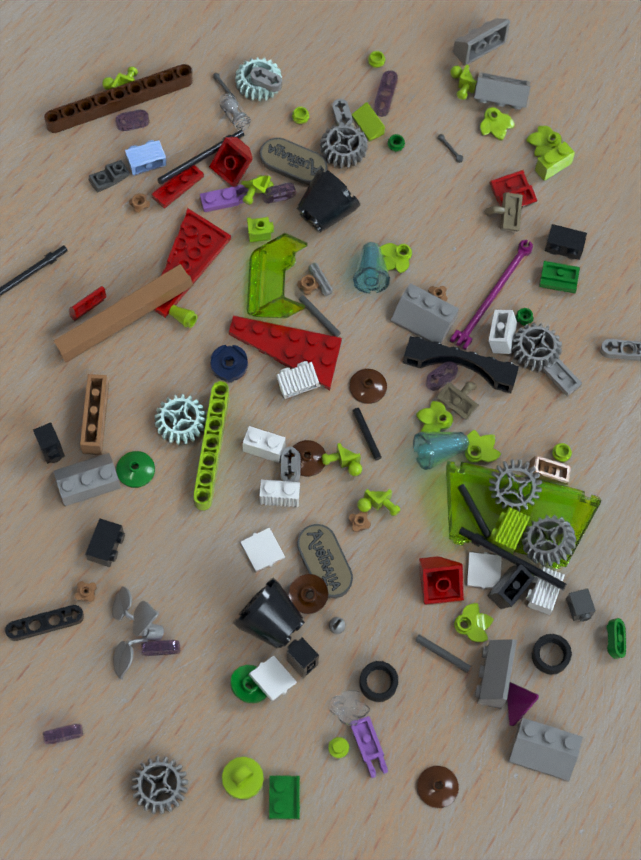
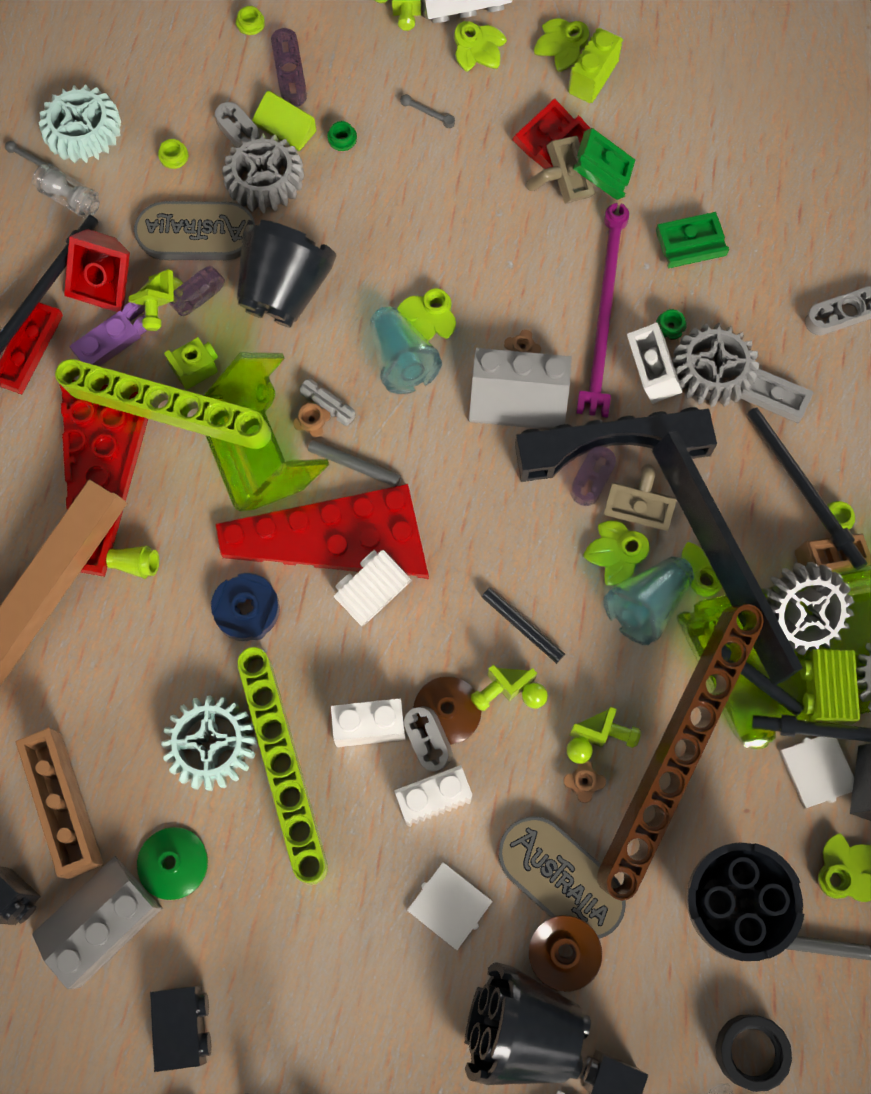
camera: 20 degrees left, 5 degrees up
(240, 248) = (151, 394): none -> lime beam
(266, 79) = (92, 117): light grey beam -> none
(340, 628) = (628, 978): light grey hinge -> none
(368, 393) = (481, 558): reddish brown dish -> none
(405, 599) = (765, 896): none -> black cone
(422, 517) = (665, 760): none -> reddish brown beam
(441, 580) = (765, 816): red slope -> none
(486, 475) = (725, 555): none -> black tile
(530, 216) = (604, 164): none -> green plate
(554, 460) = (840, 537): none -> black bar
(565, 242) = (674, 181): black brick -> none

